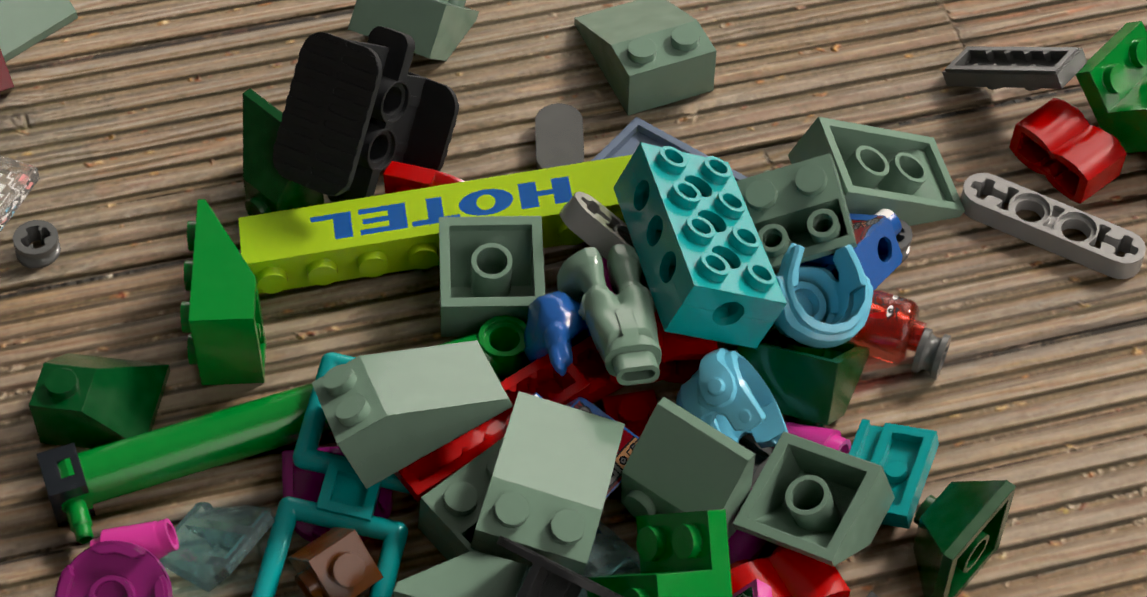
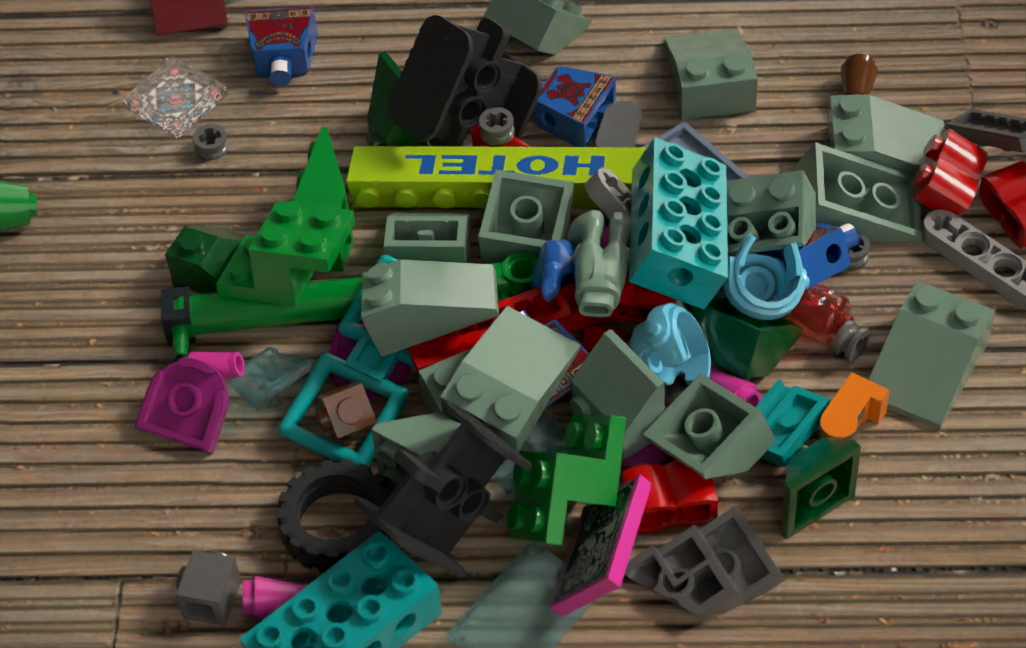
camera: 20 degrees right, 0 degrees up
(94, 100) = (282, 42): none -> torso
(204, 364) = (286, 253): none -> green bracket
(371, 318) = (428, 236): none -> sand green slope
(416, 161) = (496, 135): none -> dark grey bush
(497, 118) = (574, 104): none -> blue torso
(825, 33) = (858, 74): none -> reddish brown cone
(884, 94) = (881, 131): none -> sand green slope
(967, 427) = (852, 407): none -> orange leg
(976, 128) = (949, 173): none -> red brick
(1030, 353) = (931, 353): none -> sand green slope

